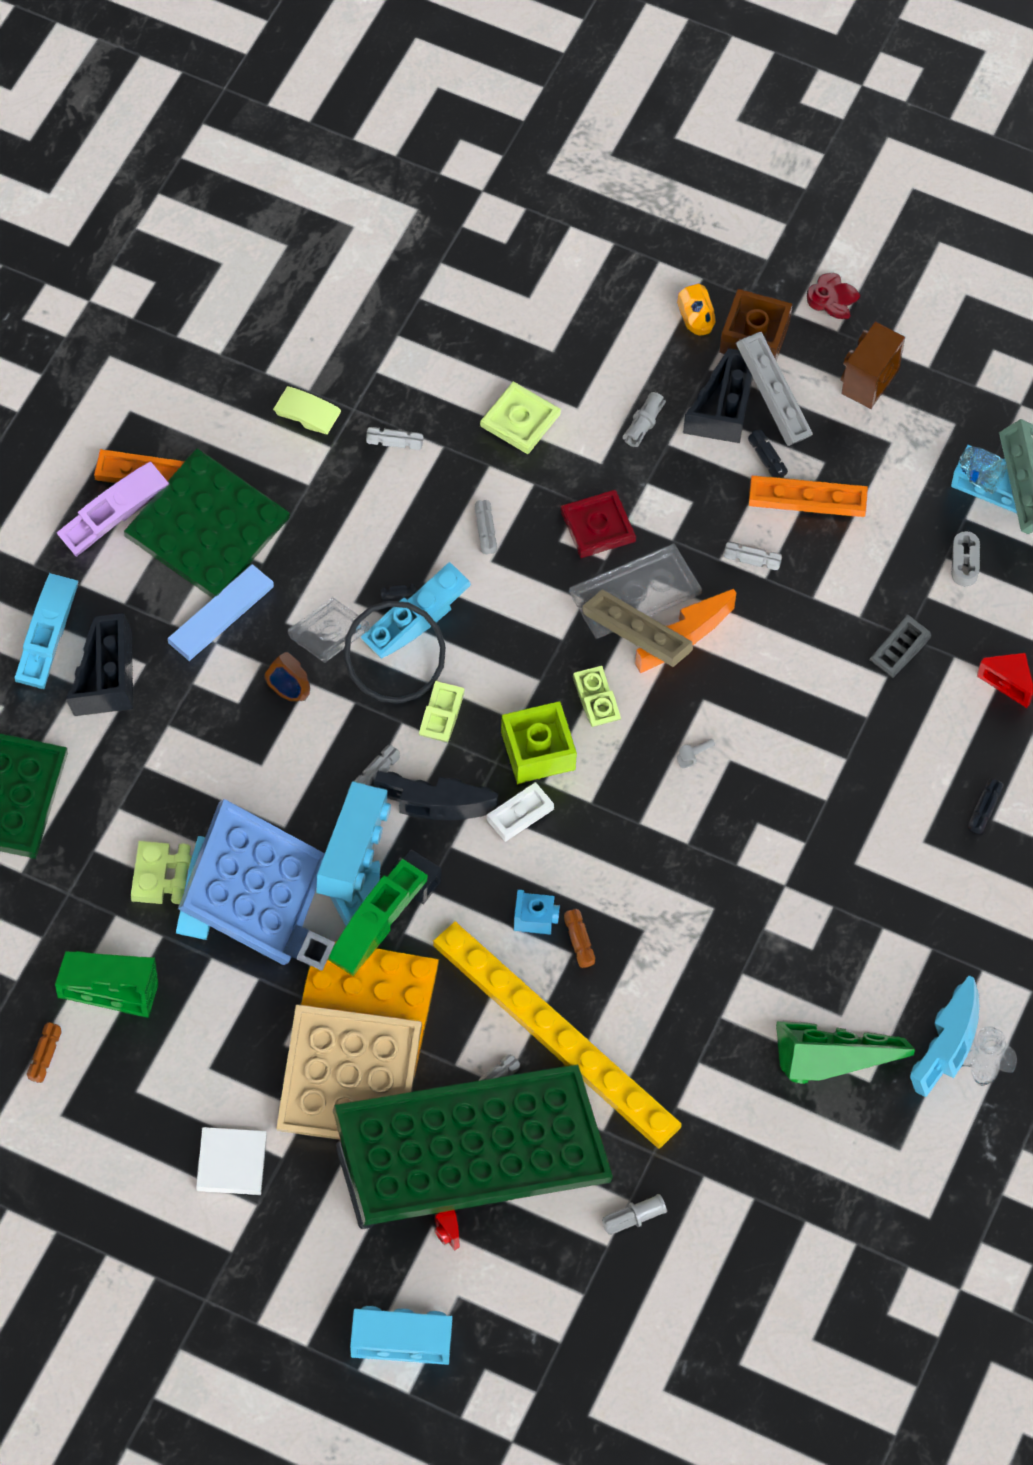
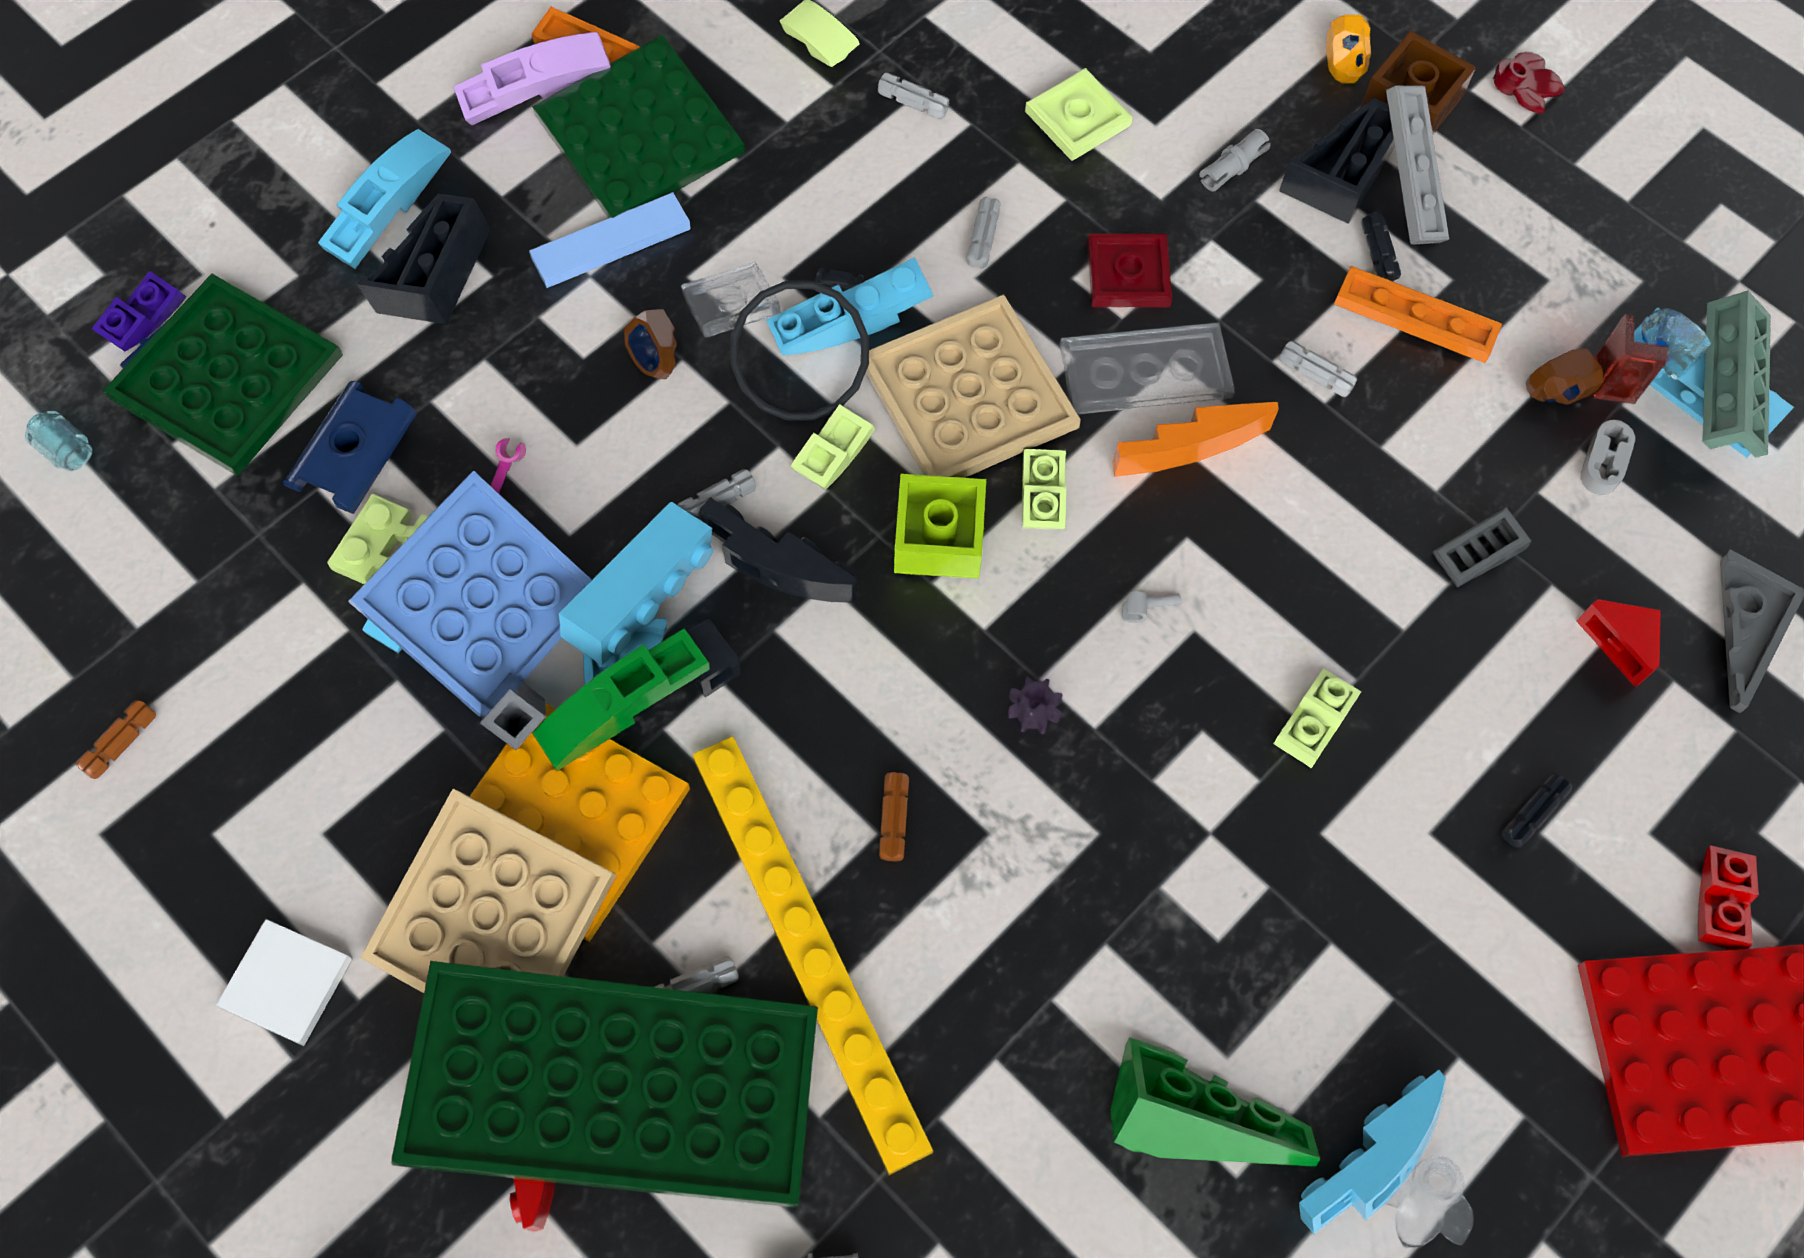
camera: 20 degrees right, 5 degrees up
(109, 795) = (352, 422): none -> dark blue piece
(109, 981) = (238, 670): green wedge -> none
(220, 792) = (505, 462): none -> dark pink hand
(520, 643) = (970, 391): none -> tan plate
(520, 812) = (881, 612): white plate -> none
(535, 913) = (849, 776): dark azure brick -> none
(637, 628) = (1129, 415): dark tan plate -> none
(644, 831) = (1030, 693): none -> clear purple gear
(828, 791) = (1317, 717): none -> yellowish green slope
(872, 364) = (1558, 171): reddish brown brick -> none
(921, 512) = (1566, 378): none -> reddish brown rock
(958, 494) = (1628, 364): none -> clear red panel

